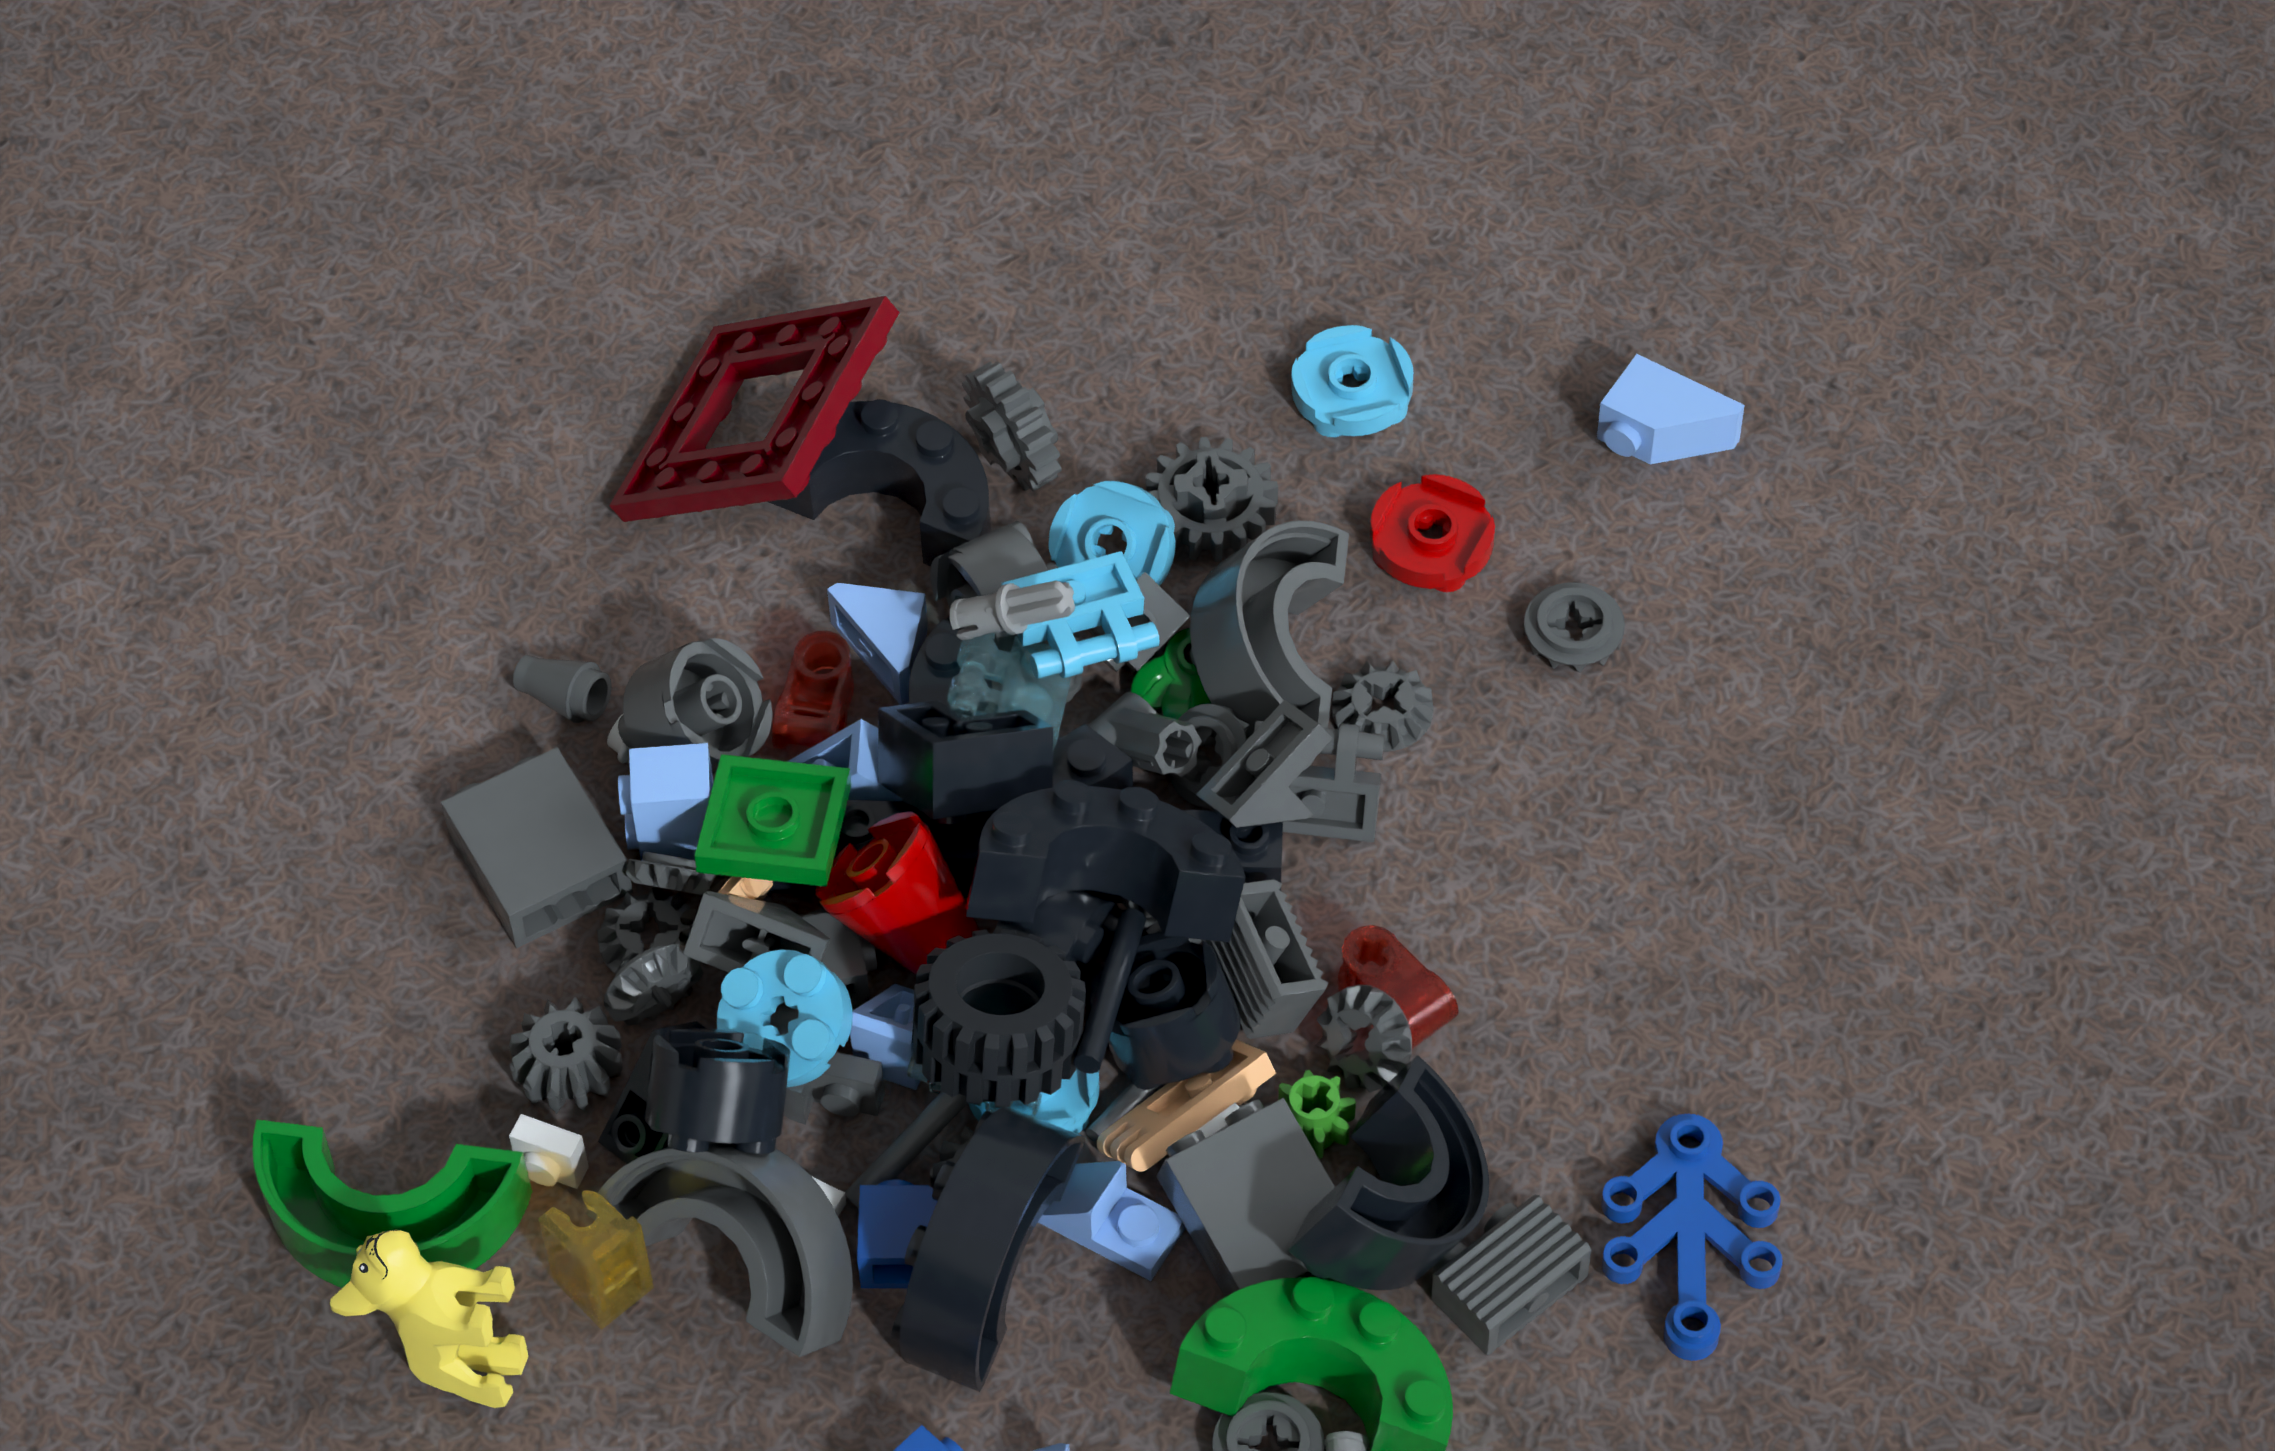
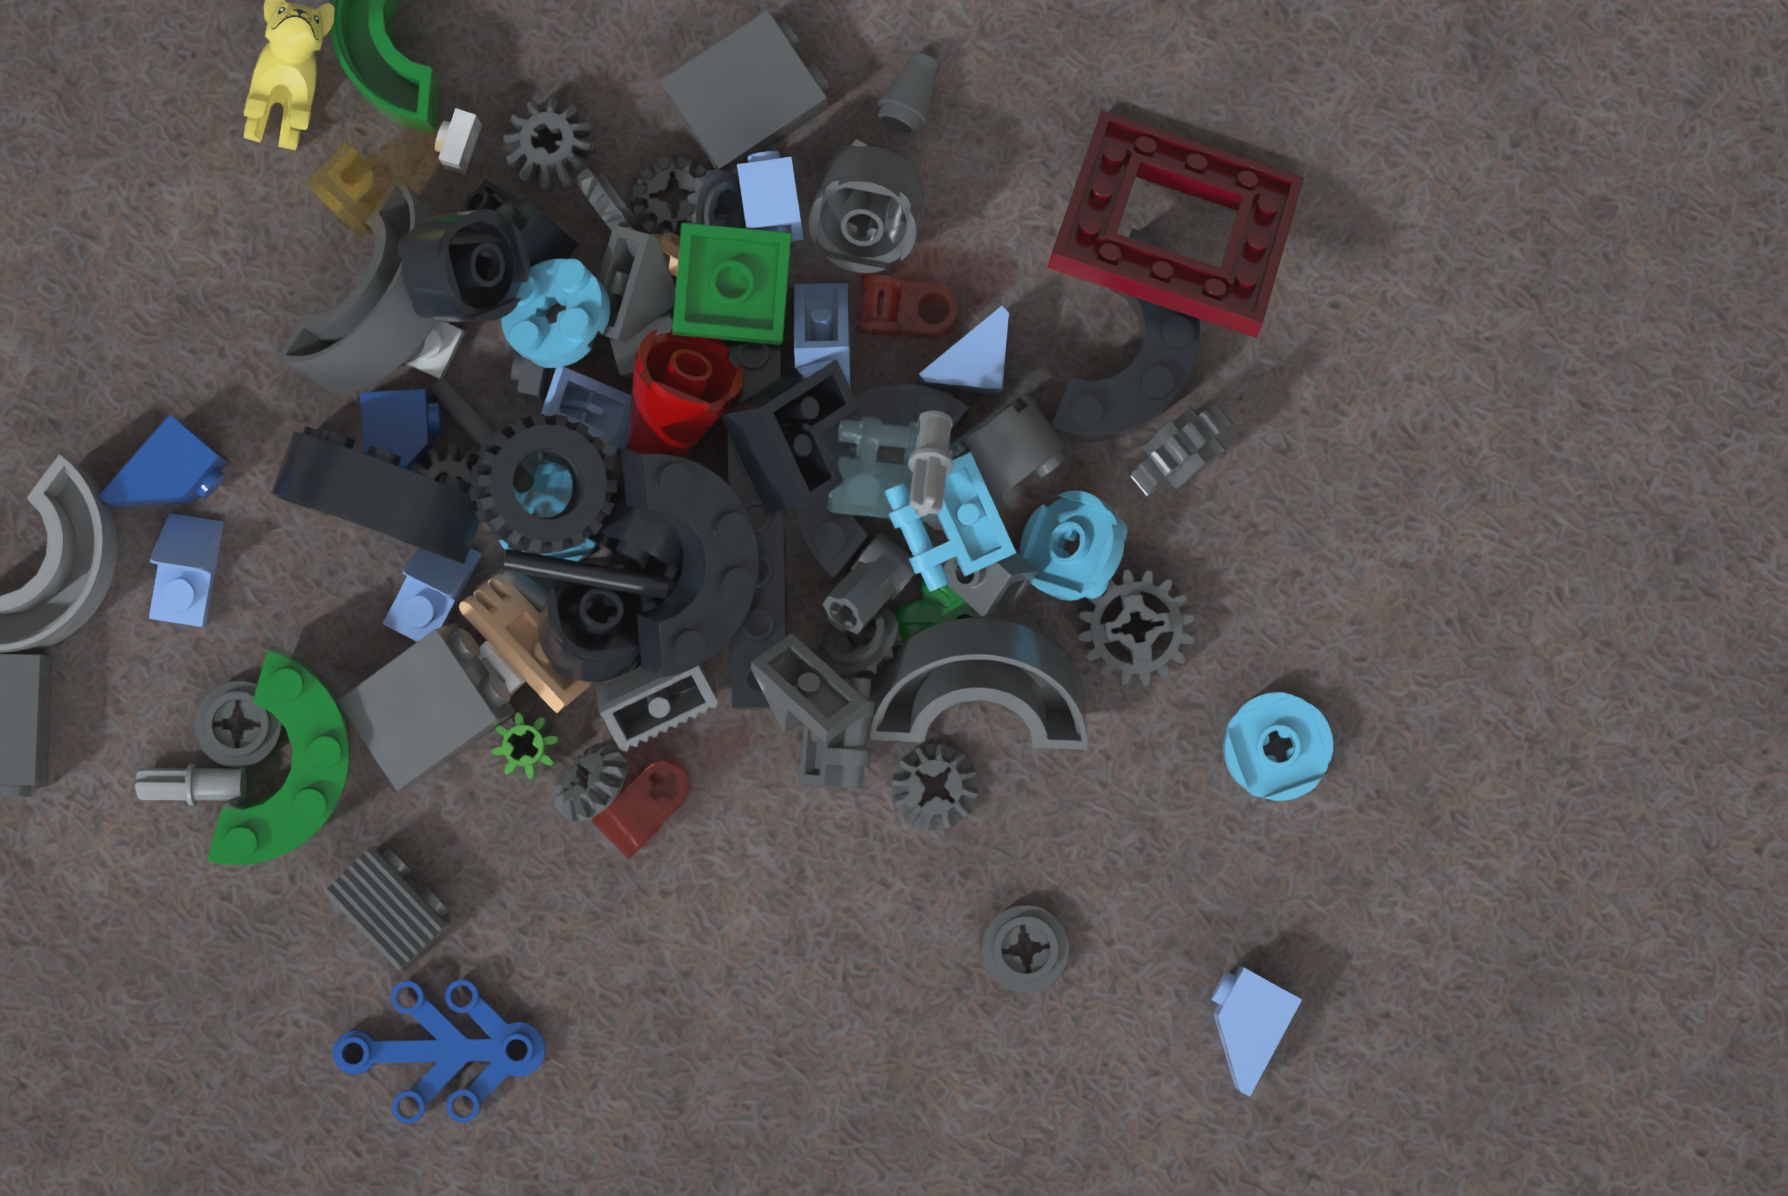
camera: 85 degrees right, 30 degrees up
(1427, 1196) = (432, 842): black brick -> none
(1428, 562) = (1144, 811): red plate -> none

